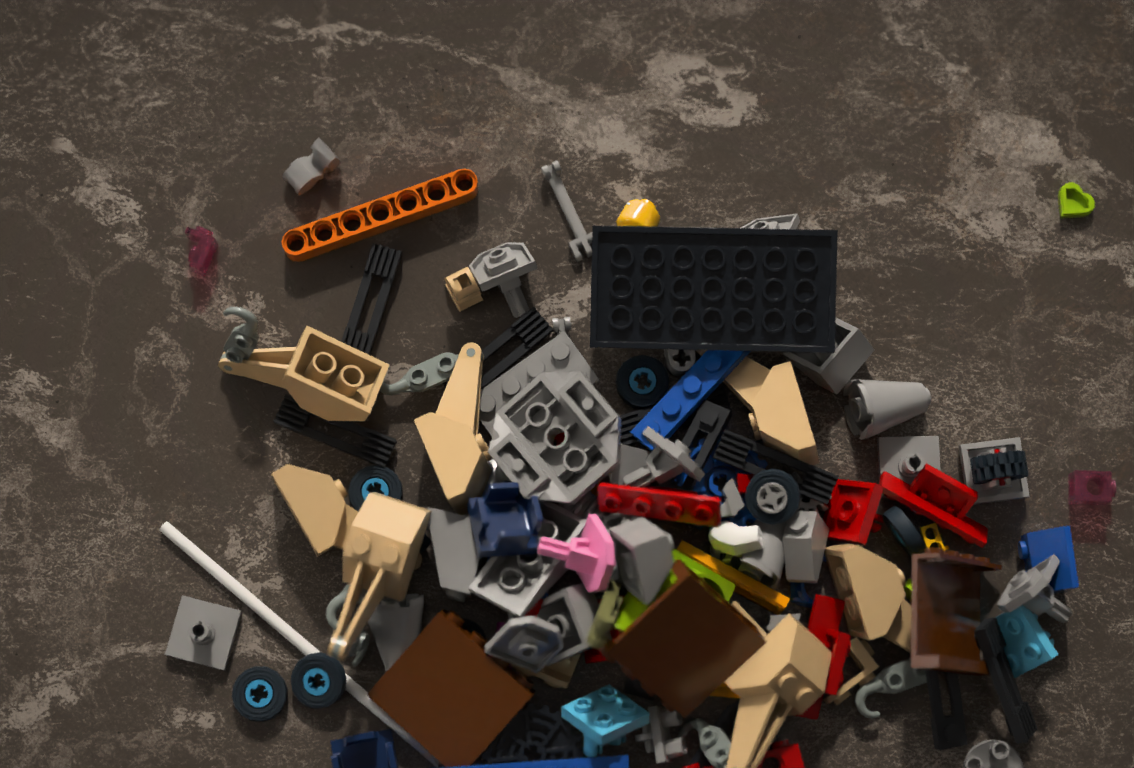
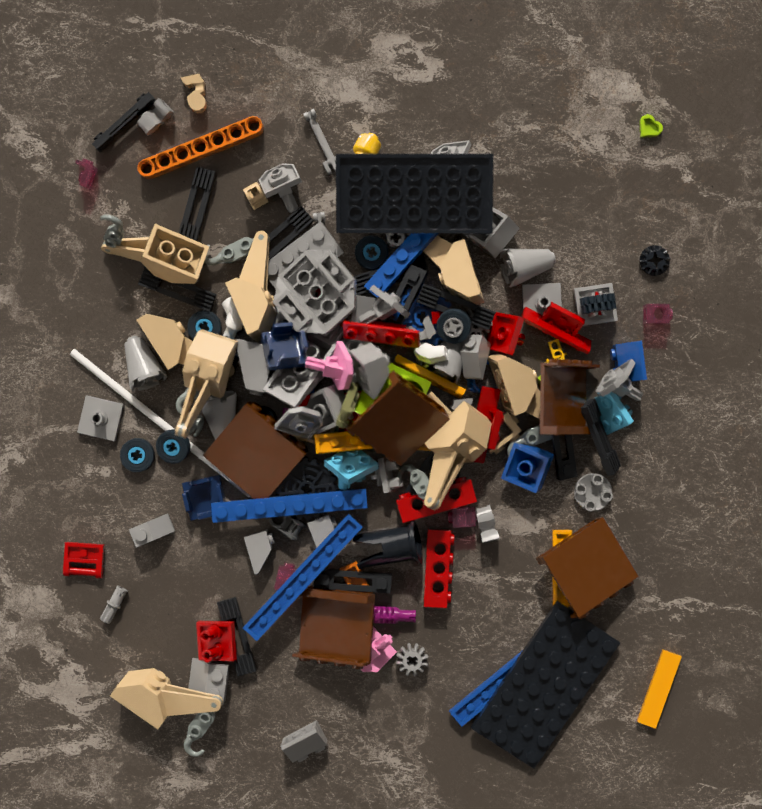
camera: 10 degrees right, 10 degrees up
(230, 199) = (104, 139): none -> black container
(275, 549) = (142, 365): none -> light grey cone
(376, 142) = (196, 99): none -> tan leg
(424, 477) = (233, 319): none -> white arm
(588, 678) = (338, 443): none -> light orange tile
(888, 726) = (527, 467): none -> blue slope
(903, 531) = (538, 345): black bush -> none
(1077, 415) = (649, 267): none -> black gear

